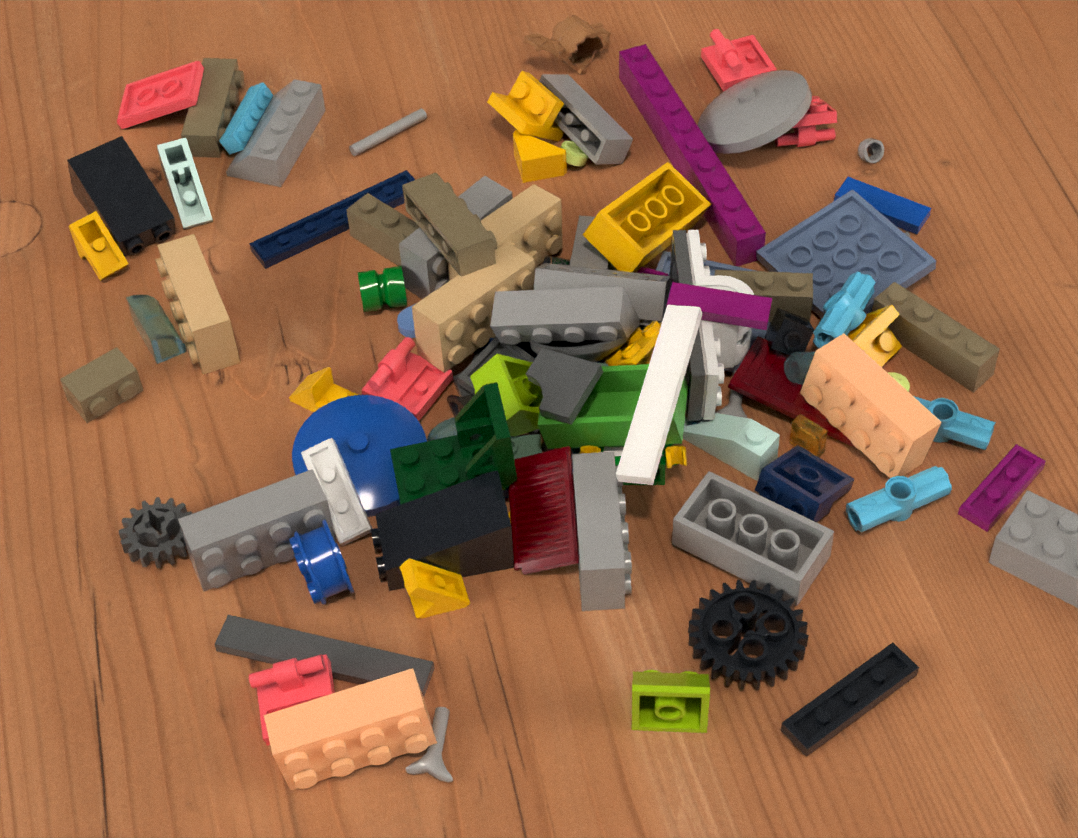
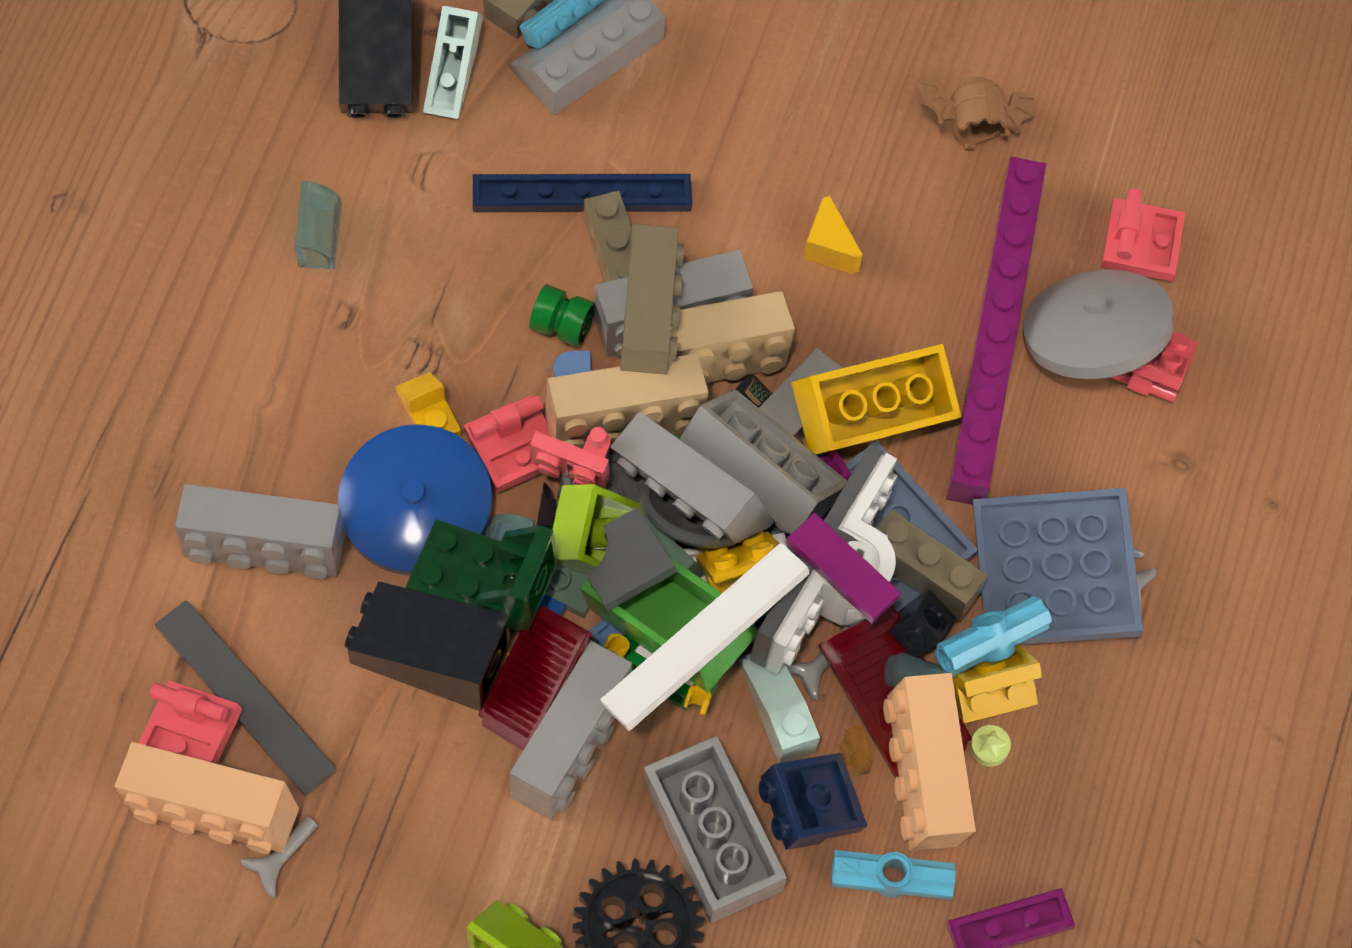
camera: 25 degrees right, 15 degrees up
(97, 245) = (318, 93): yellow slope -> none
(101, 385) = (225, 266): dark tan brick -> none
(142, 533) = (164, 460): dark grey gear -> none
(197, 304) = (367, 228): tan brick -> none
(321, 563) = (296, 604): blue wheel -> none
(345, 506) = (362, 531): white tile -> none
(387, 132) = (707, 109): light grey bar -> none
(433, 589) = (384, 691): yellow slope -> none
(464, 352) = (582, 465): none -> coral plate
(530, 108) = (859, 177): yellow bracket -> none
(574, 154) = (877, 256): yellowish green tile -> none
(587, 122) = (913, 219): light grey brick -> none
(874, 147) = (1206, 443): light grey hinge -> none
(897, 209) = (1157, 519): blue tile -> none
(939, 338) = (1075, 716): dark tan brick -> none
(958, 424) = (1018, 836): medium azure piece -> none

